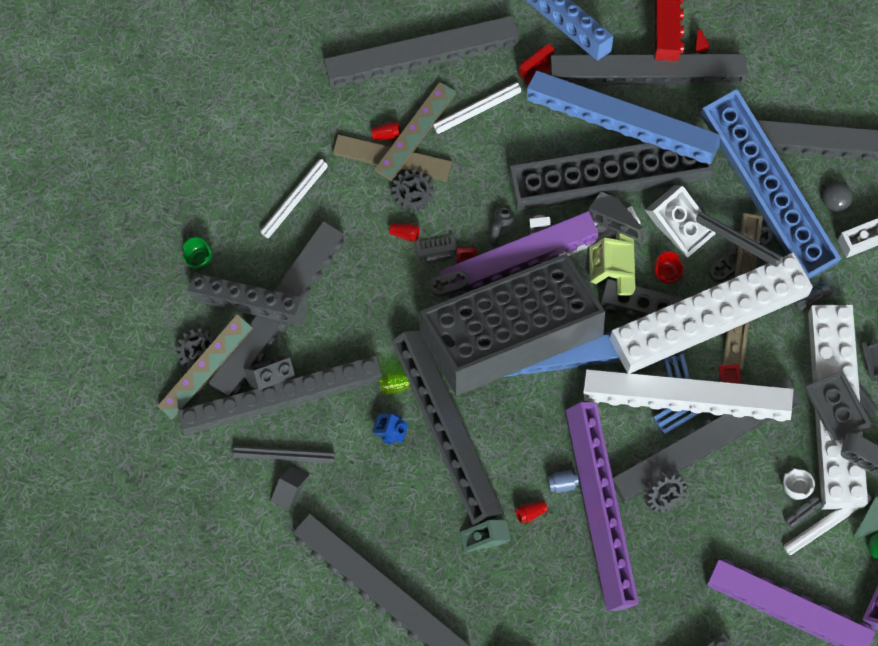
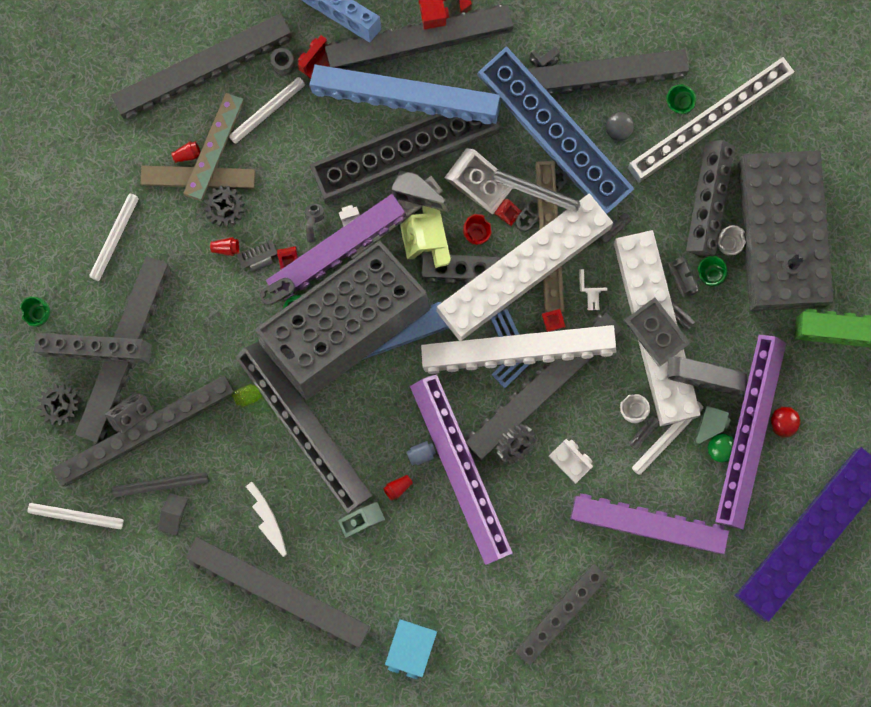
camera: 15 degrees left, 10 degrees up
(189, 467) = (75, 516): none -> white axle
(205, 366) = (68, 420): tile -> none
(387, 520) = (270, 525): none -> white slope
(390, 428) = (252, 439): blue brick -> none
(504, 63) = (282, 62): none -> dark grey piece
(703, 258) = (507, 212): none -> red slope
(720, 523) = (571, 460): none -> white bracket
(776, 115) = (548, 59): none -> dark grey bracket
(776, 356) = (593, 293): none -> white bracket

